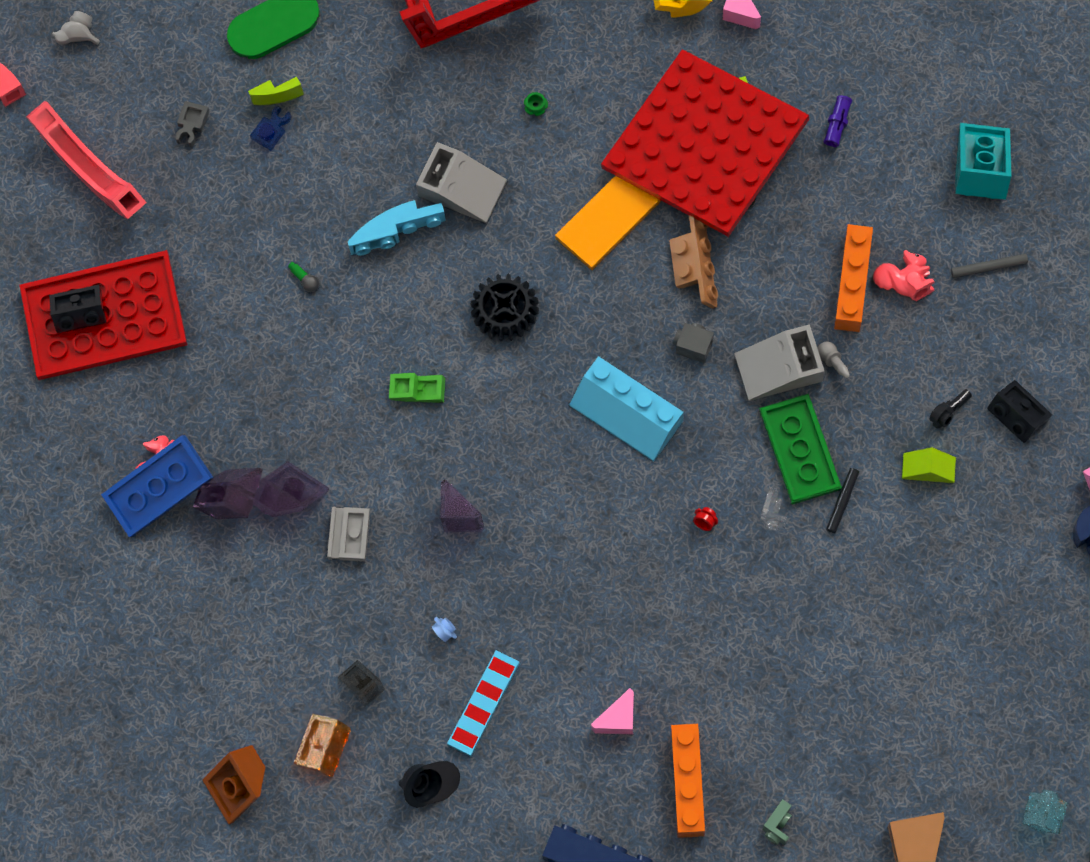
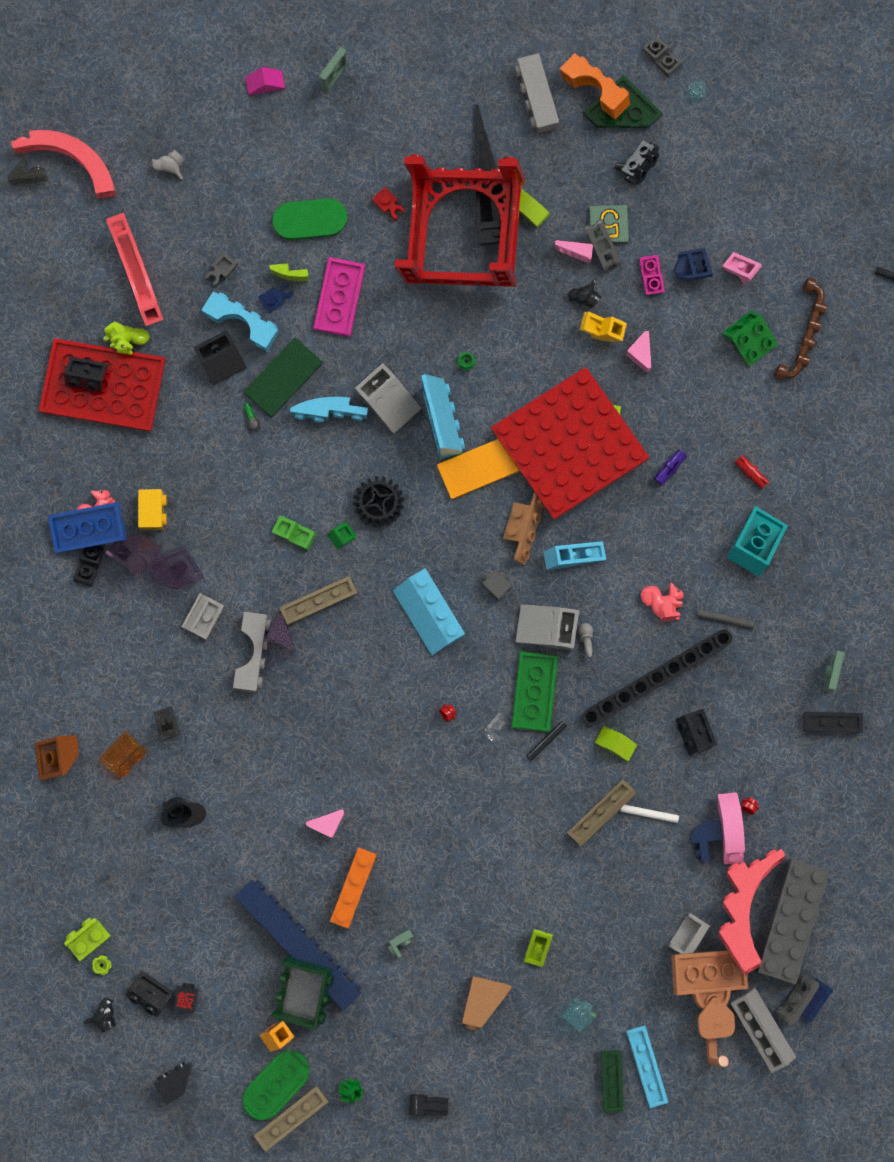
camera: 15 degrees right, 10 degrees up
(107, 248) = (123, 335): none -> lime animal
(178, 534) = (89, 565): none -> black slope
(211, 166) = (220, 309): none -> medium azure arch
(228, 434) = (151, 509): none -> yellow brick
(234, 221) = (220, 357): none -> black slope
(322, 214) = (283, 377): none -> dark green tile
(348, 96) = (339, 297): none -> dark pink tile
(436, 580) = (248, 677): none -> light grey arch
(444, 629) = (238, 711): light blue plate -> none
(476, 367) = (341, 535): none -> green slope
(483, 703) = (242, 773): tile -> none
(485, 451) = (318, 600): none -> dark tan plate
(535, 176) = (441, 416): none -> medium azure slope
(770, 268) = (574, 555): none -> medium azure slope
(853, 278) = (626, 587): orange arch -> none
(937, 86) = (751, 472): none -> red pin
(942, 413) = (642, 711): black plate -> none
(943, 356) = (665, 674): none -> black beam
(952, 555) = (601, 812): none -> dark tan plate
(953, 751) = (538, 947): none -> lime slope
(1010, 532) = (650, 813): none -> white bar

